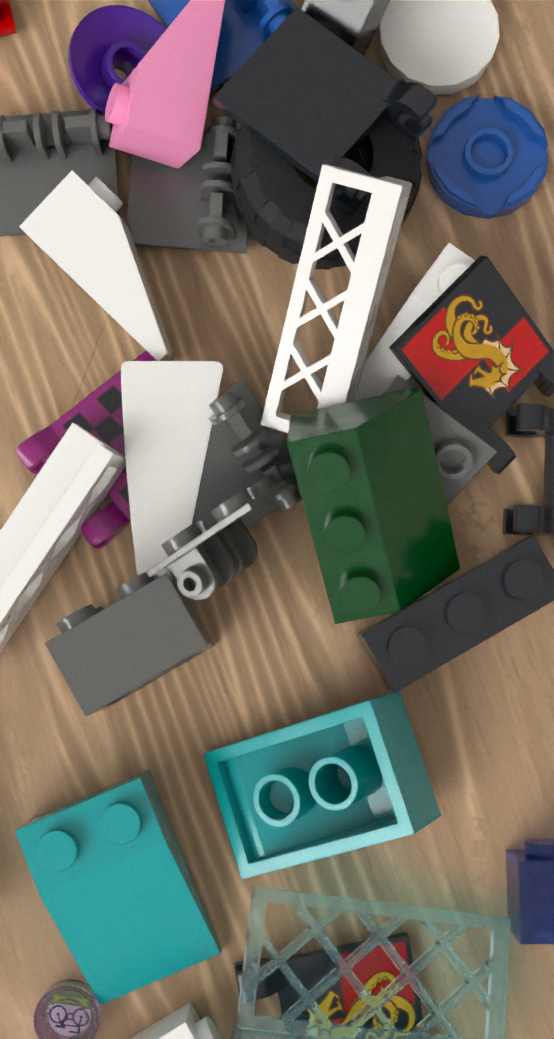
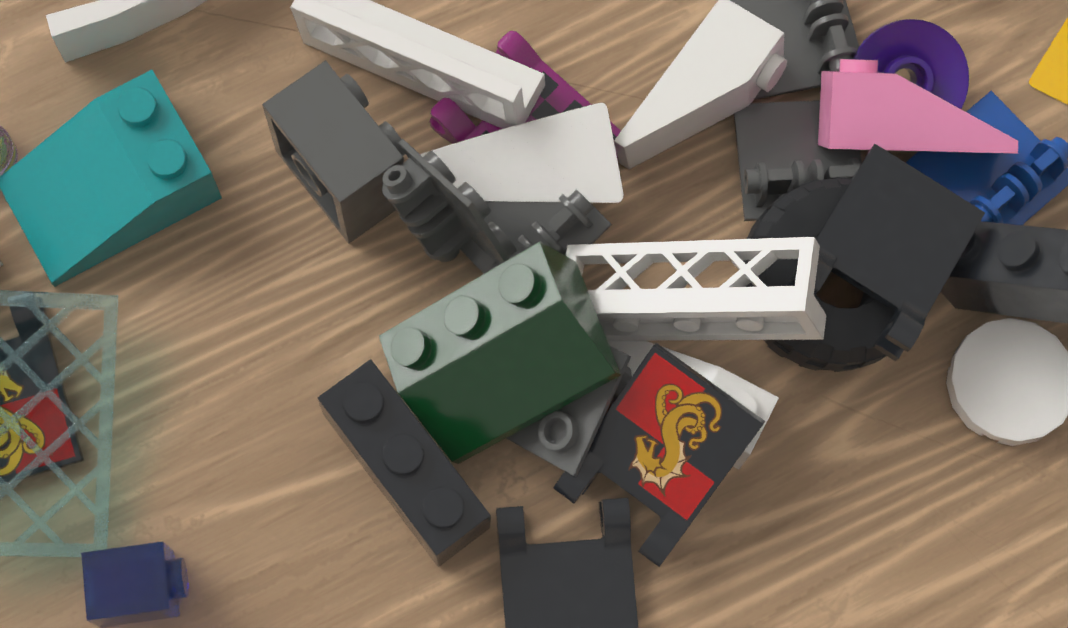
camera: 75 degrees right, 10 degrees down
(323, 786) = (223, 356): teal slope -> none
(487, 156) = (890, 448): blue tile -> none

